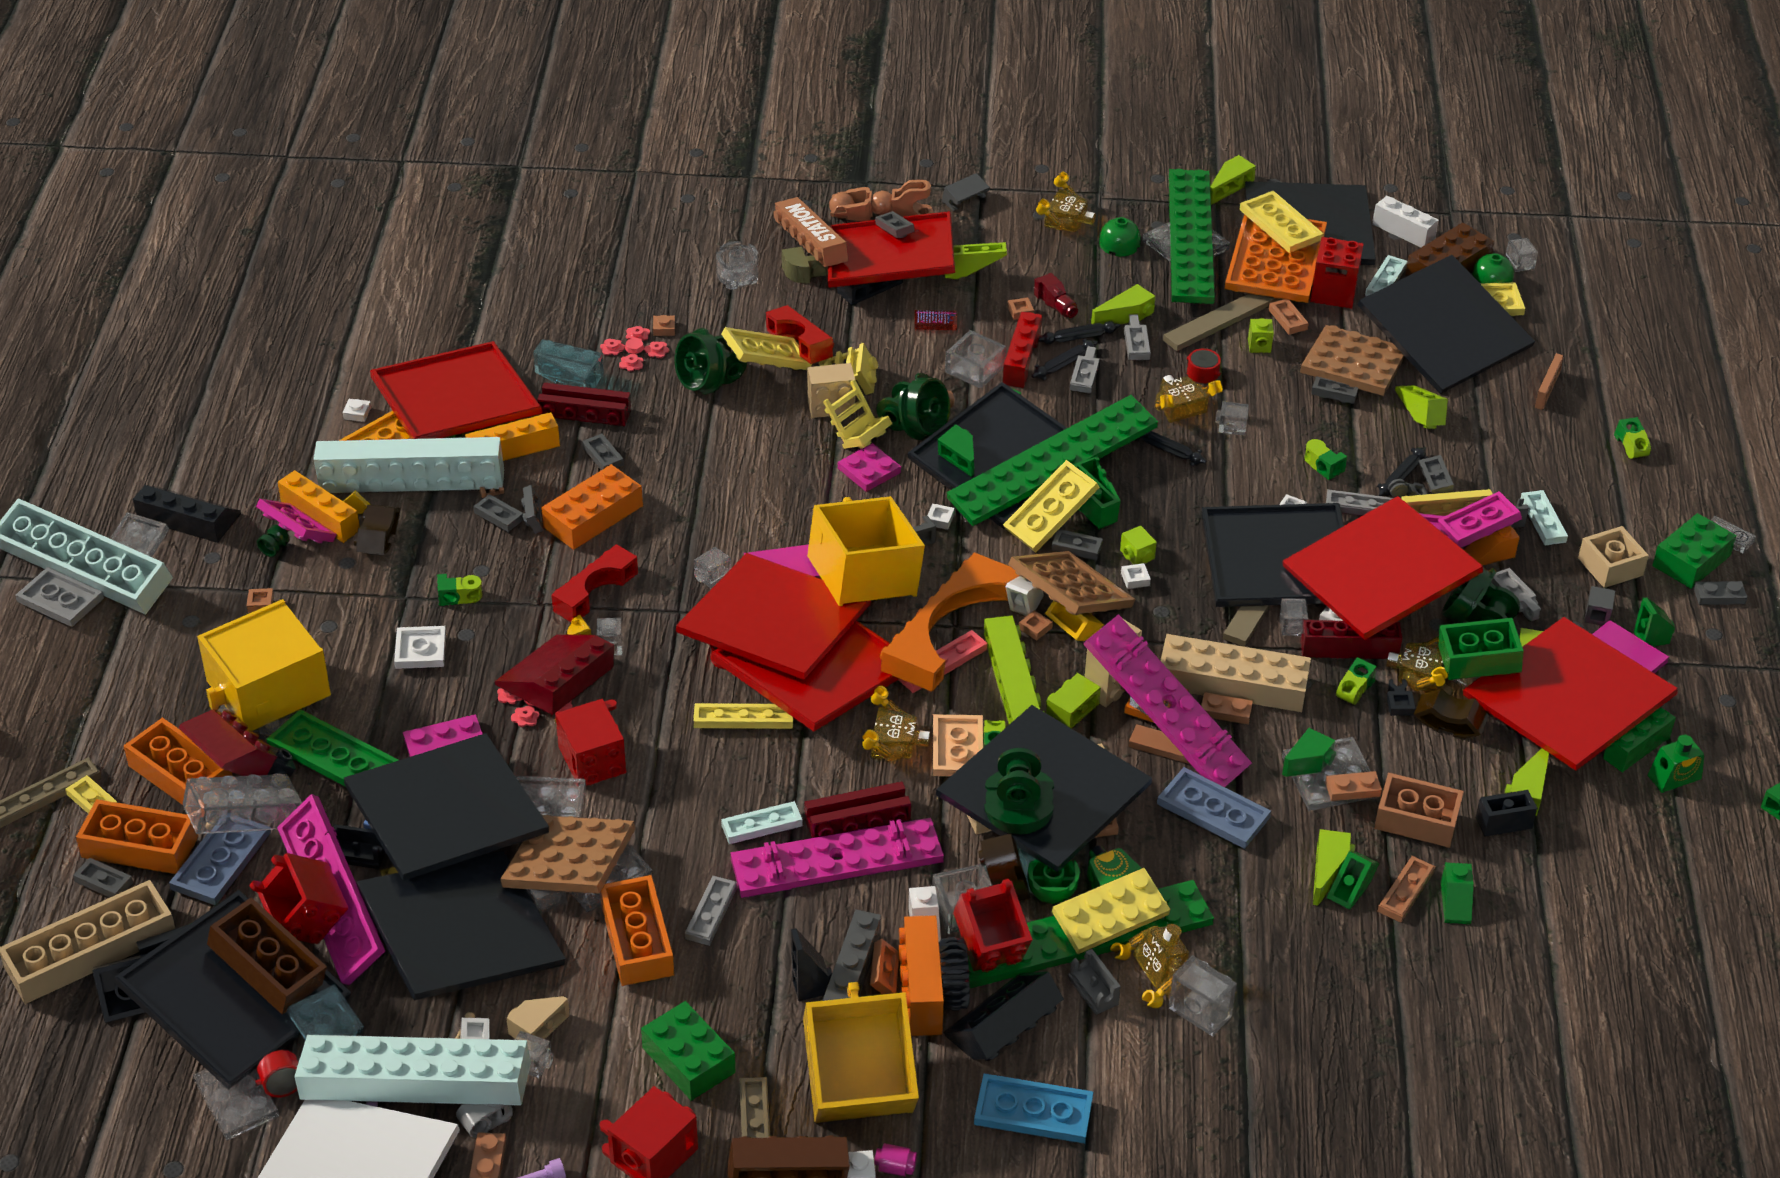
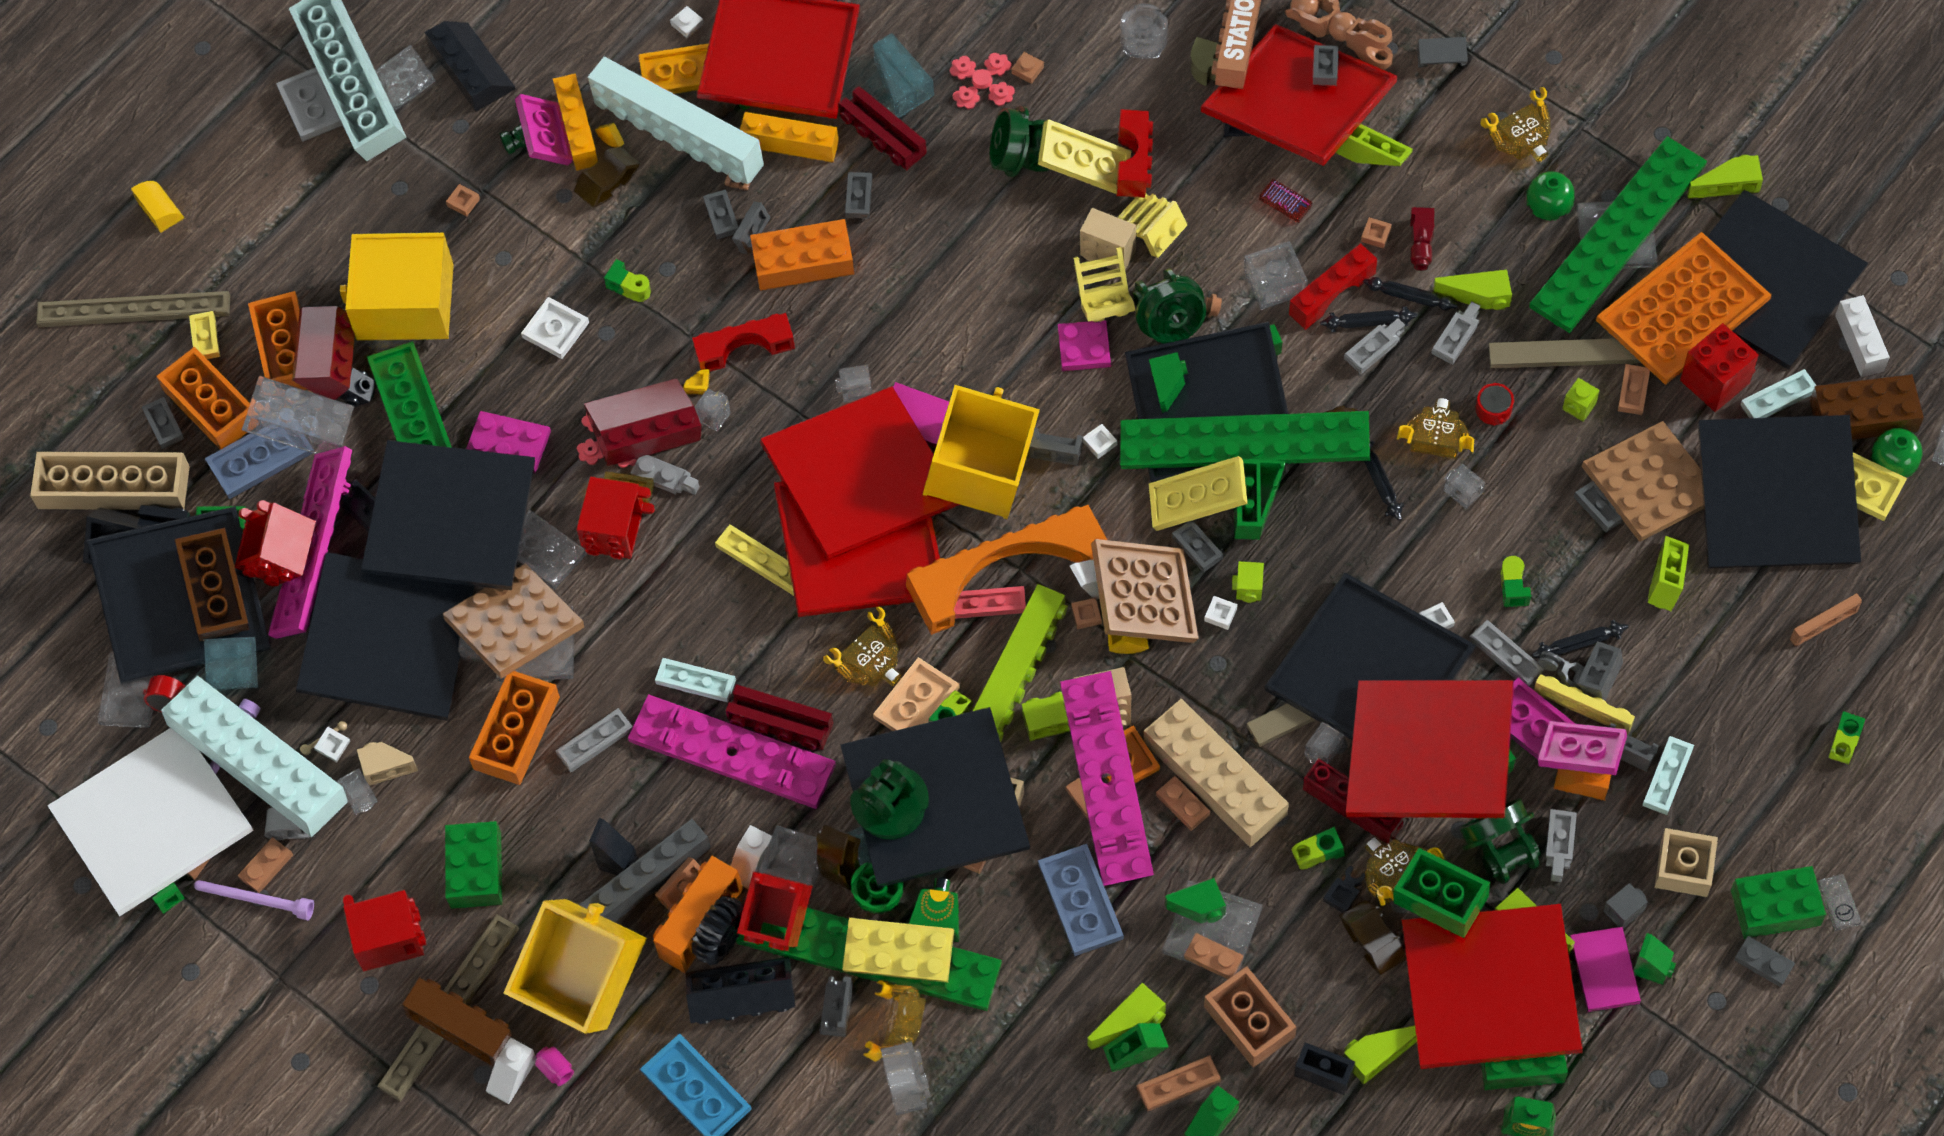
camera: 40 degrees right, 20 degrees up
(623, 696) = (665, 475): none -> light grey hinge
(1281, 221) = (1716, 271): light yellow plate -> none

